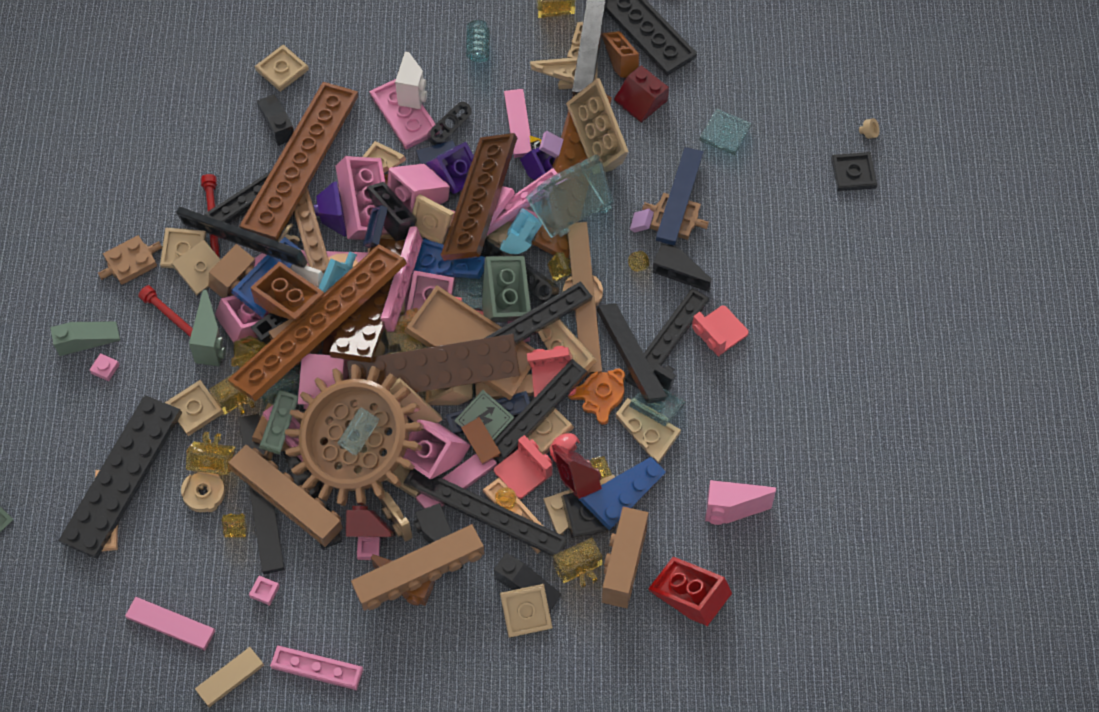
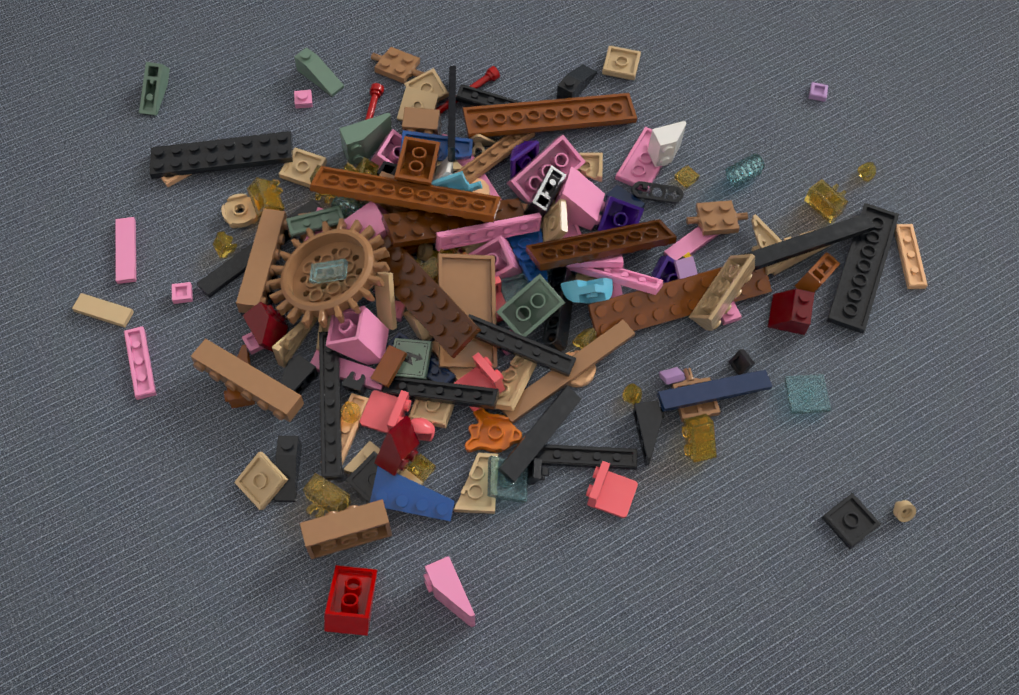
camera: 55 degrees right, 0 degrees up
(375, 226) = (521, 189): dark blue tile -> none
(447, 91) = (686, 176): none -> clear yellow tile
(477, 483) = (355, 386): none -> black tile
(511, 92) = (717, 218): none -> medium nougat plate
(572, 196) = (647, 307): clear light blue windscreen -> none
(665, 161) = (741, 362): none -> black tile
(717, 232) = (699, 438): none -> clear yellow brick

